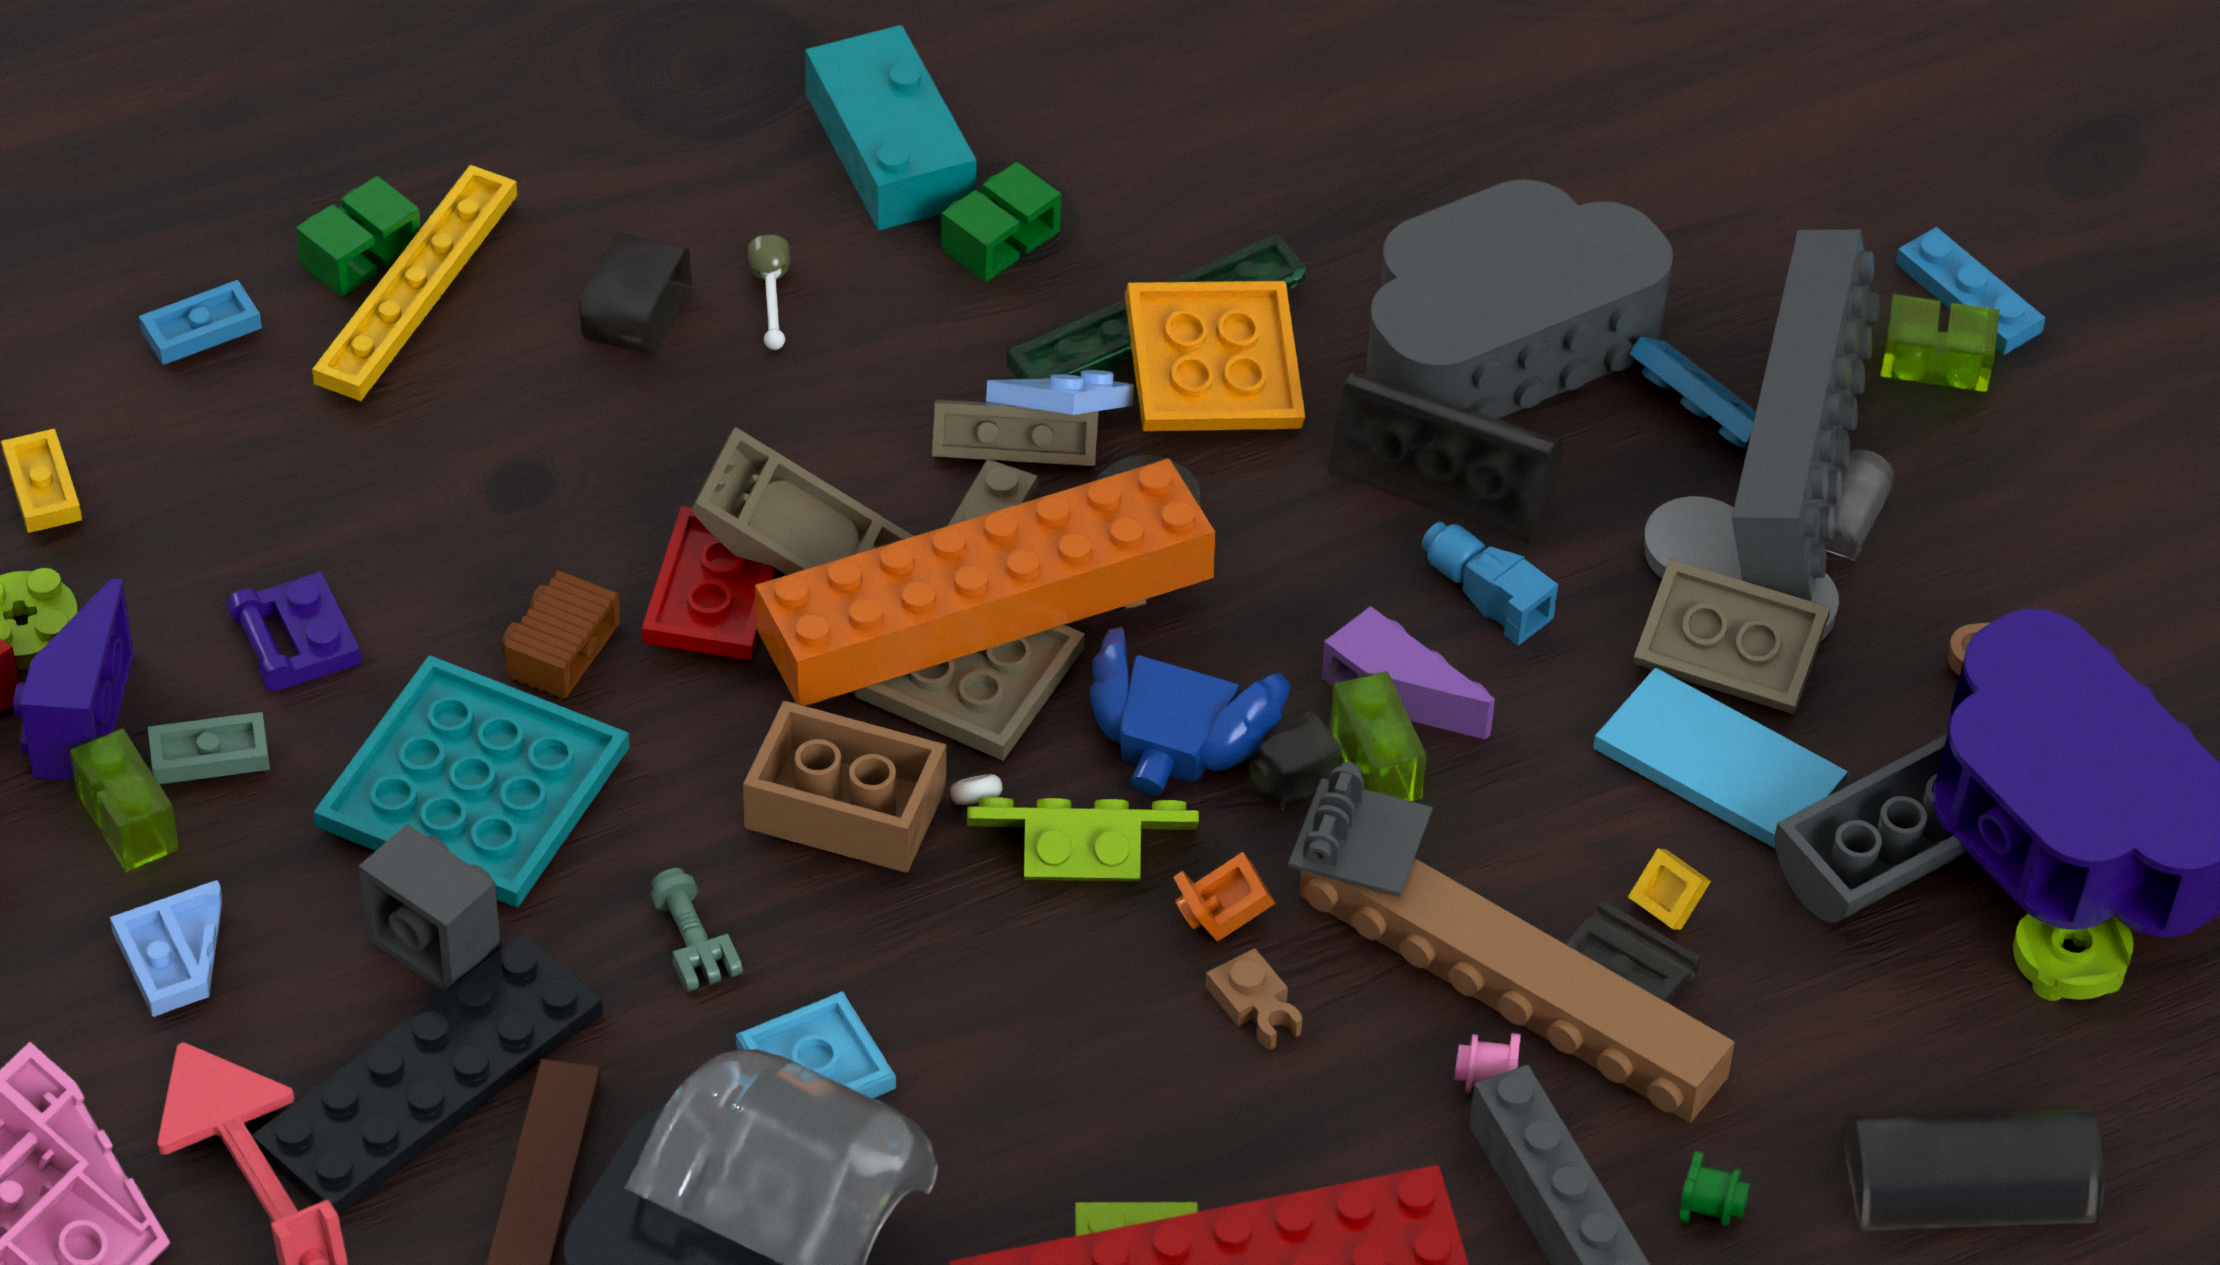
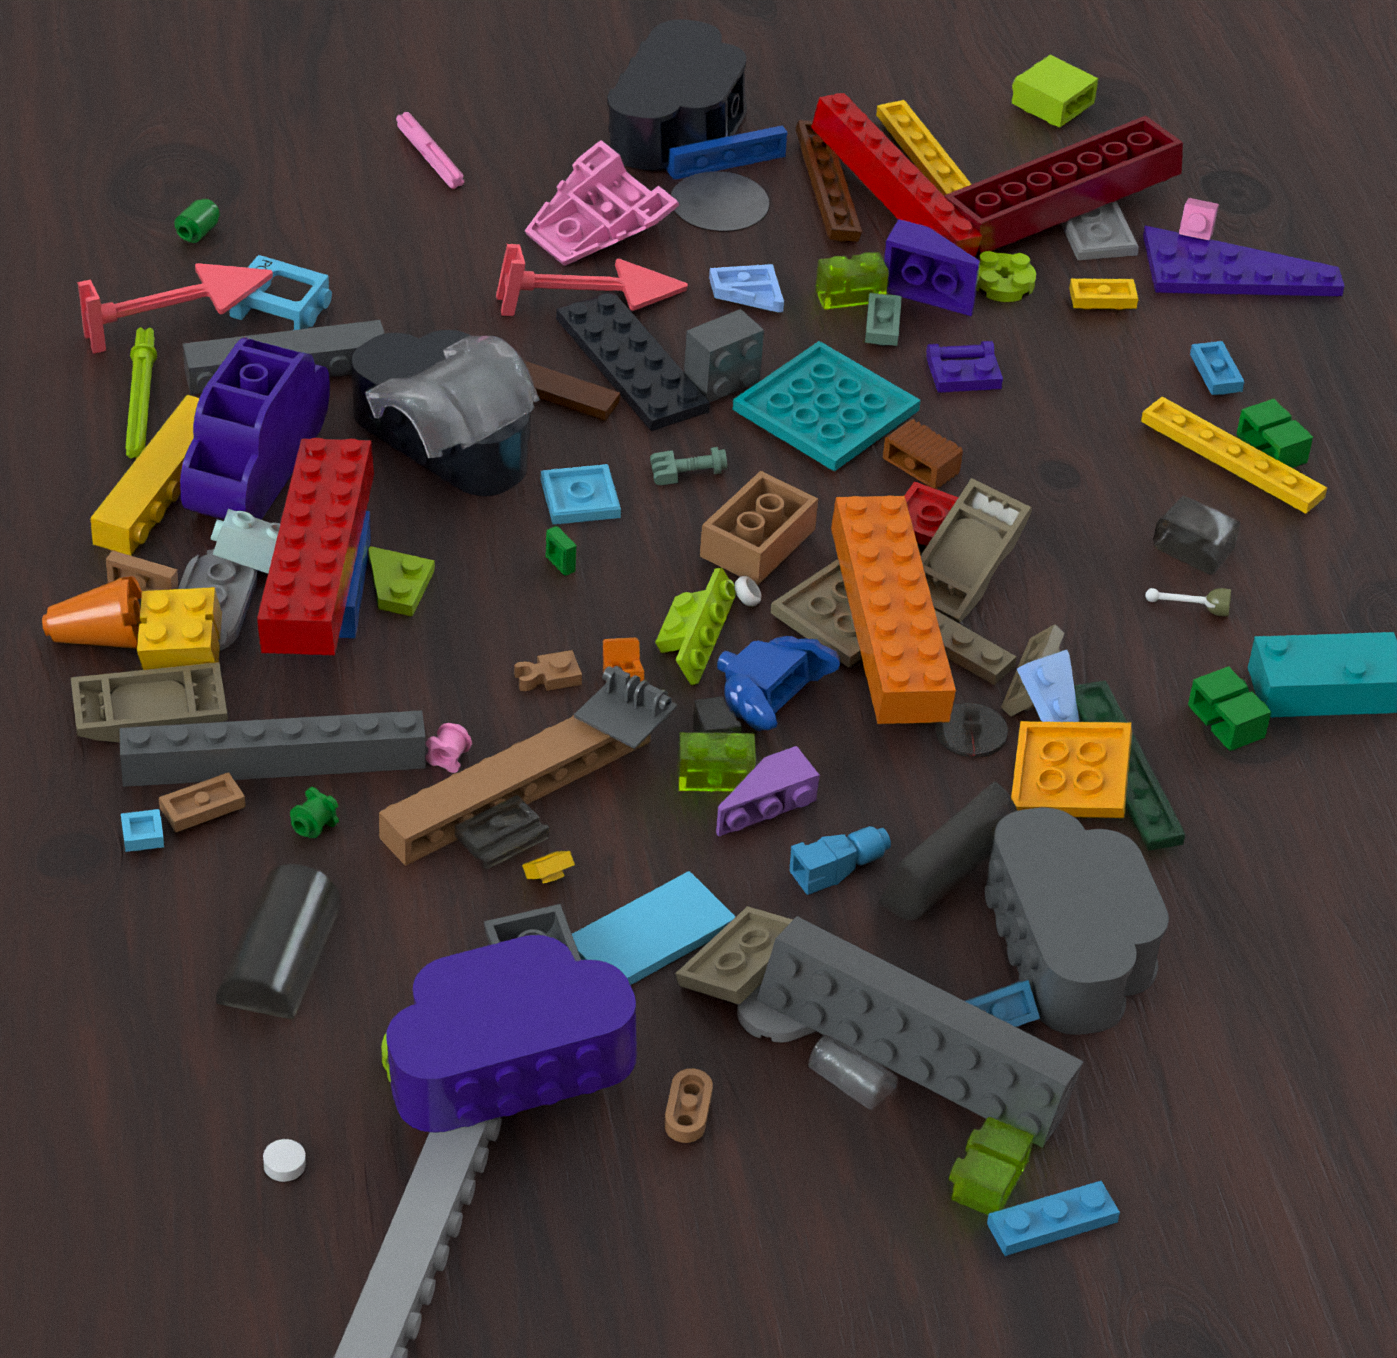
camera: 105 degrees right, 5 degrees down
(987, 1037) = (561, 550): none -> green tile

